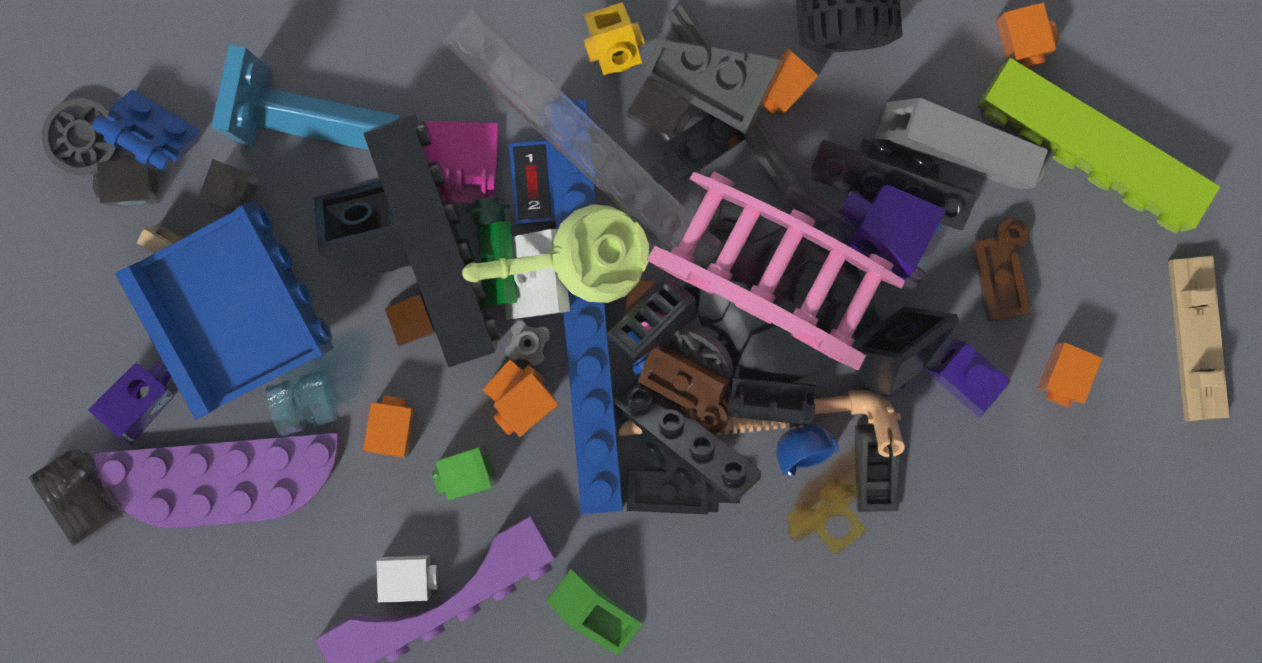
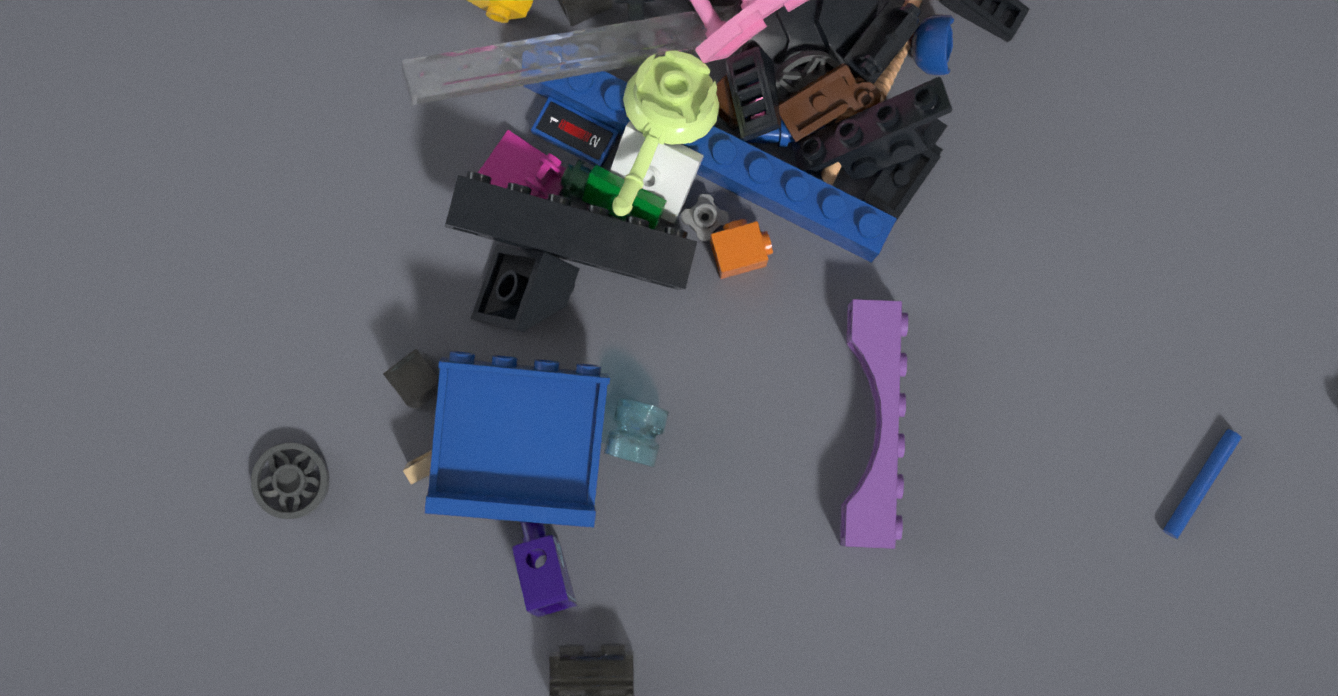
camera: 55 degrees left, 5 degrees down
(126, 183) = (354, 464): clear smoke brick -> none
(147, 130) = (322, 417): blue plate -> none
(219, 479) = (655, 547): medium lavender plate -> none
(248, 104) = (391, 289): dark azure piece -> none
(390, 427) = (703, 372): orange brick -> none
(406, 578) = (839, 439): white brick -> none
(410, 320) = (624, 301): reddish brown slope -> none
(464, 473) = (782, 331): bright green slope -> none
(524, 406) = (759, 239): orange brick -> none
(593, 612) = (963, 301): bright green slope -> none
(835, 503) = (989, 51): clear yellow bracket -> none

